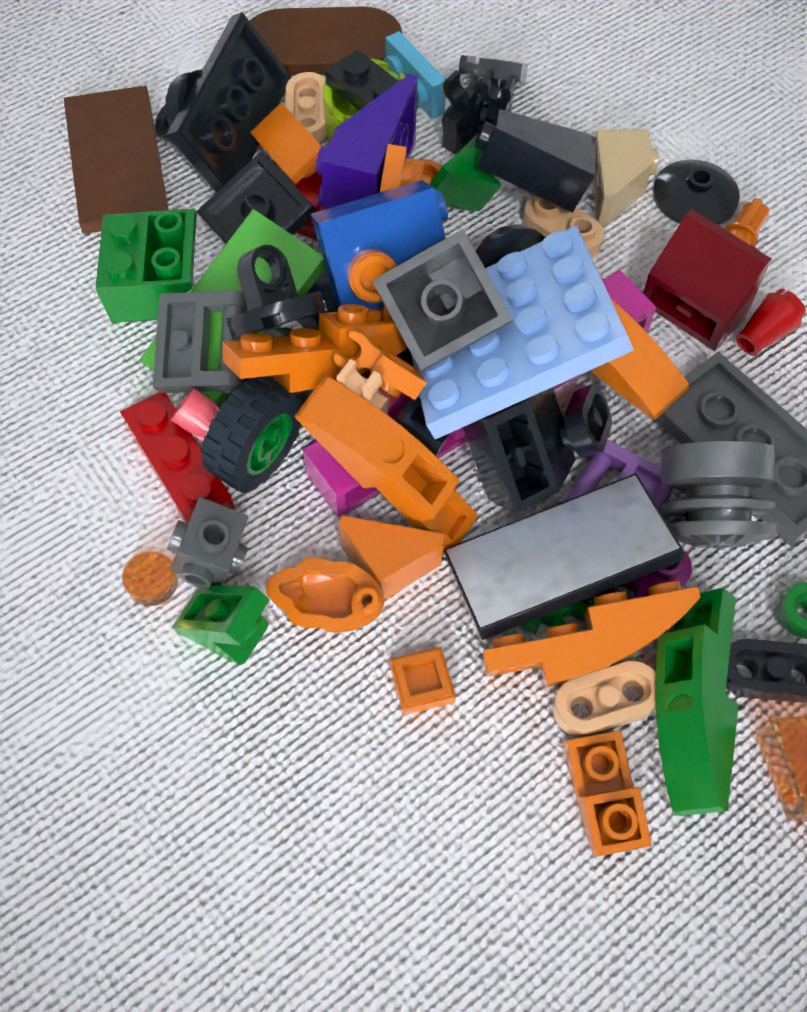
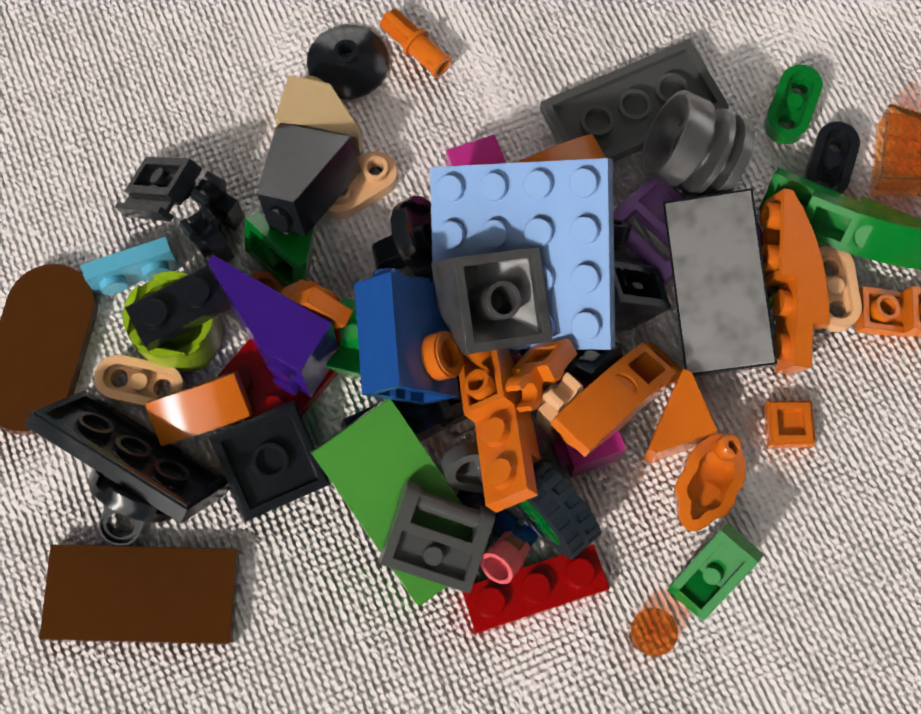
camera: 75 degrees left, 10 degrees up
(142, 259) = (315, 572): green slope -> none
(208, 544) = (648, 570): dark grey brick -> none
(272, 302) = (451, 452): black tile -> none
(705, 280) = (474, 86): dark red slope -> none
(773, 319) = (515, 50): red cone -> none

